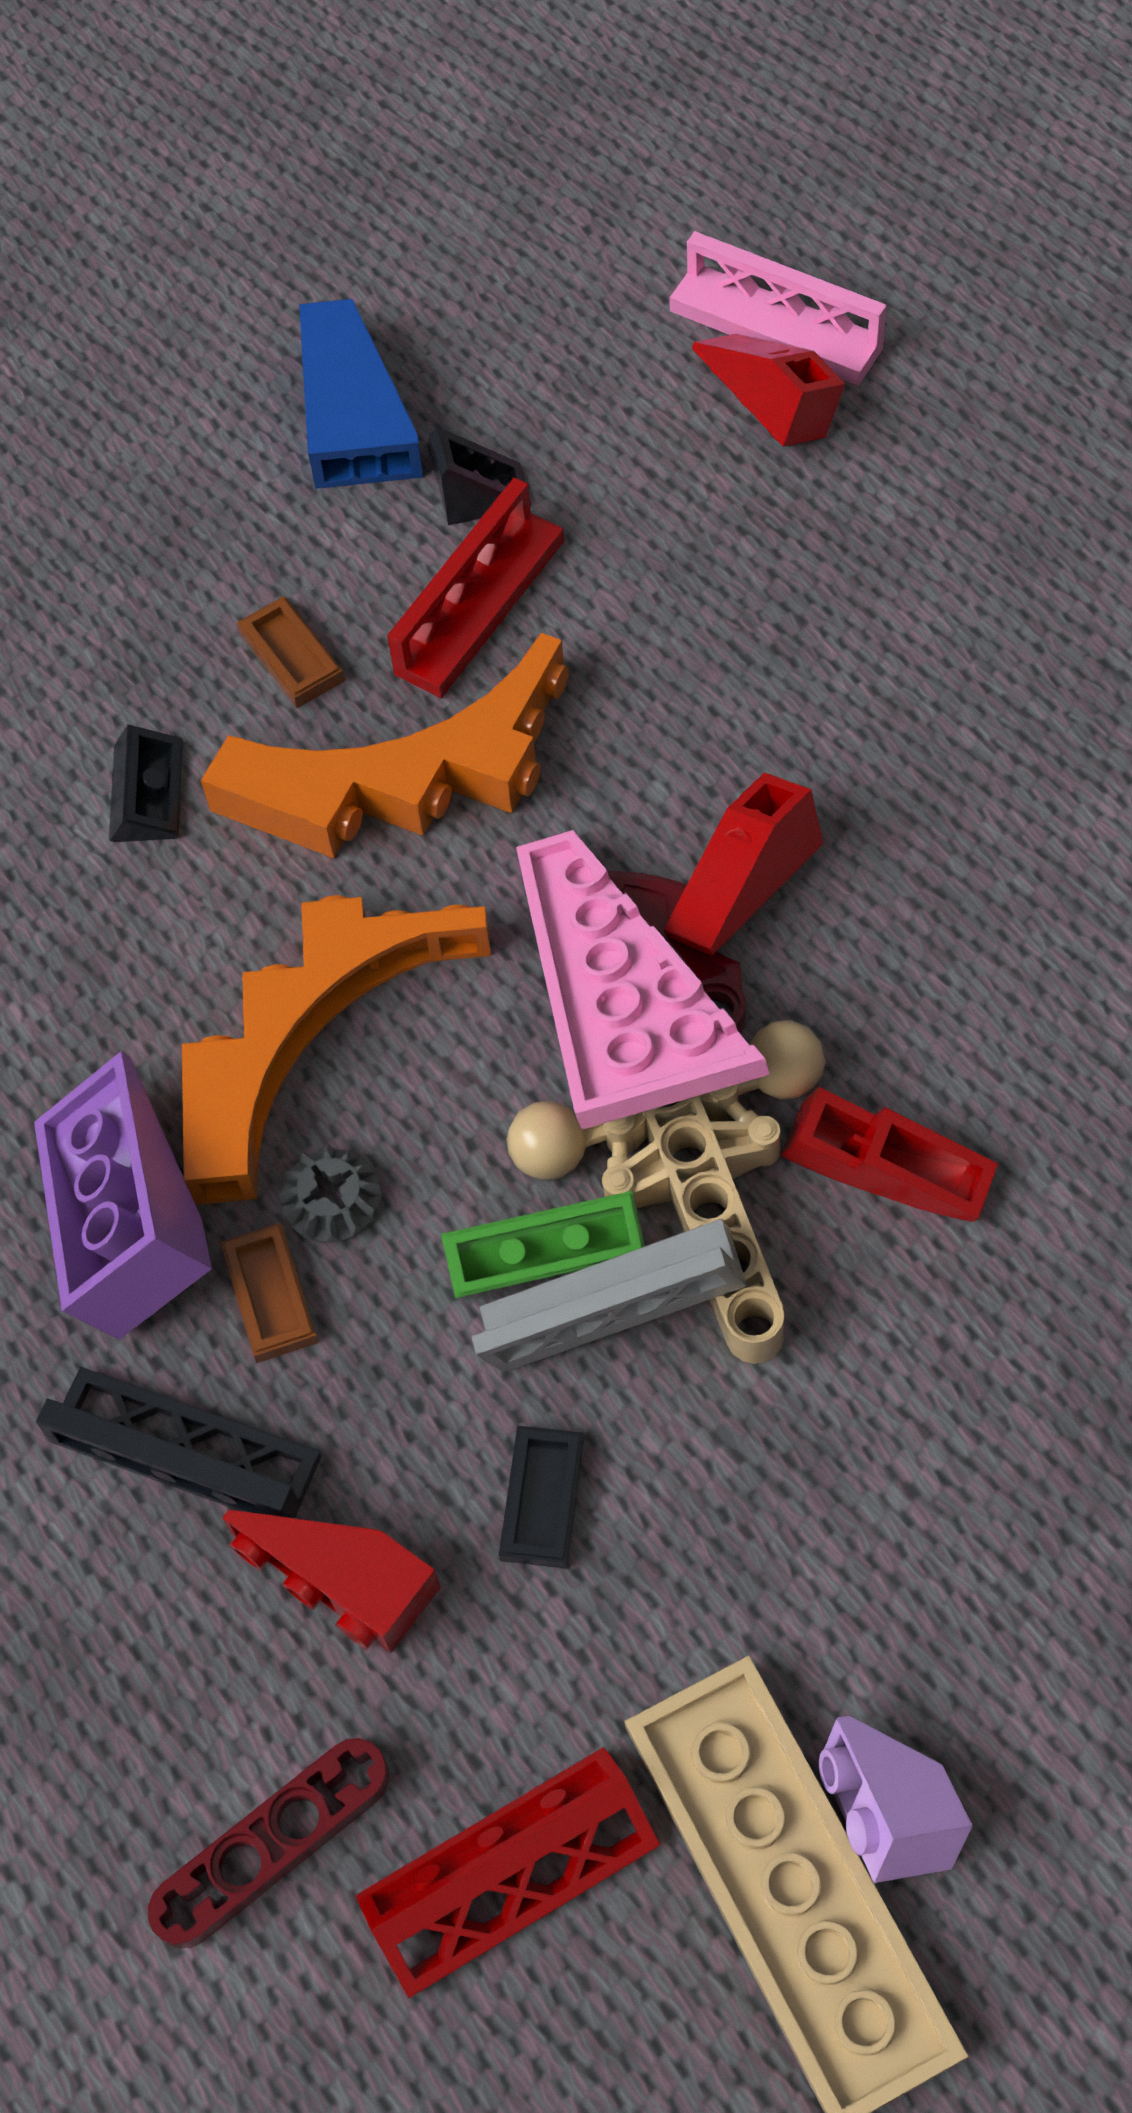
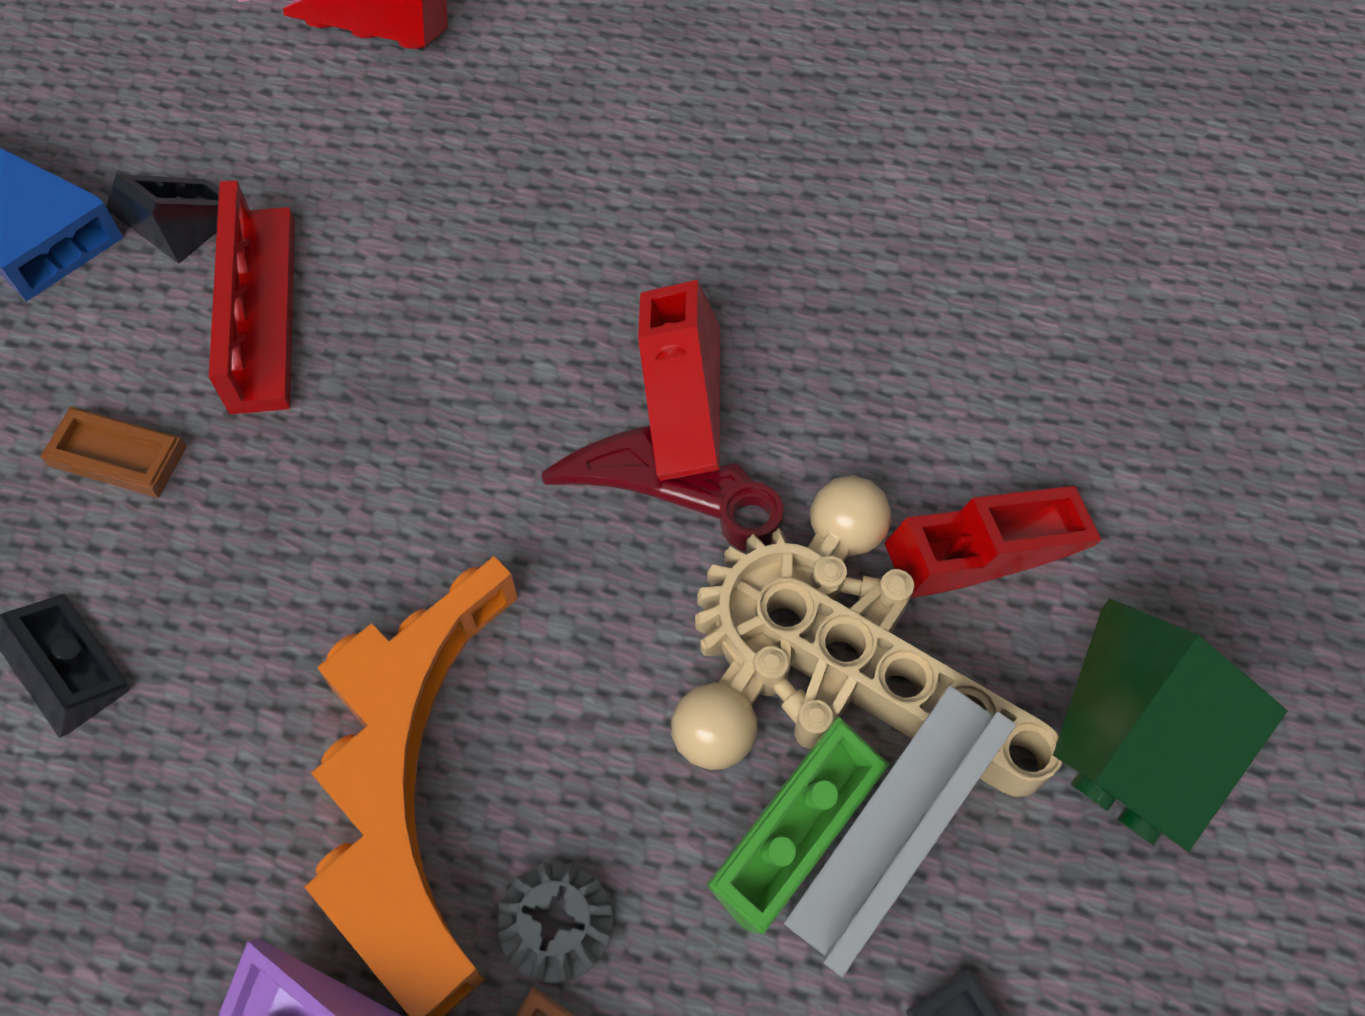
camera: 45 degrees left, 0 degrees up
(403, 781) = (254, 554): orange arch -> none
(621, 998) = (694, 555): bright pink wing -> none
(863, 1366) = (1161, 725): none -> dark green slope

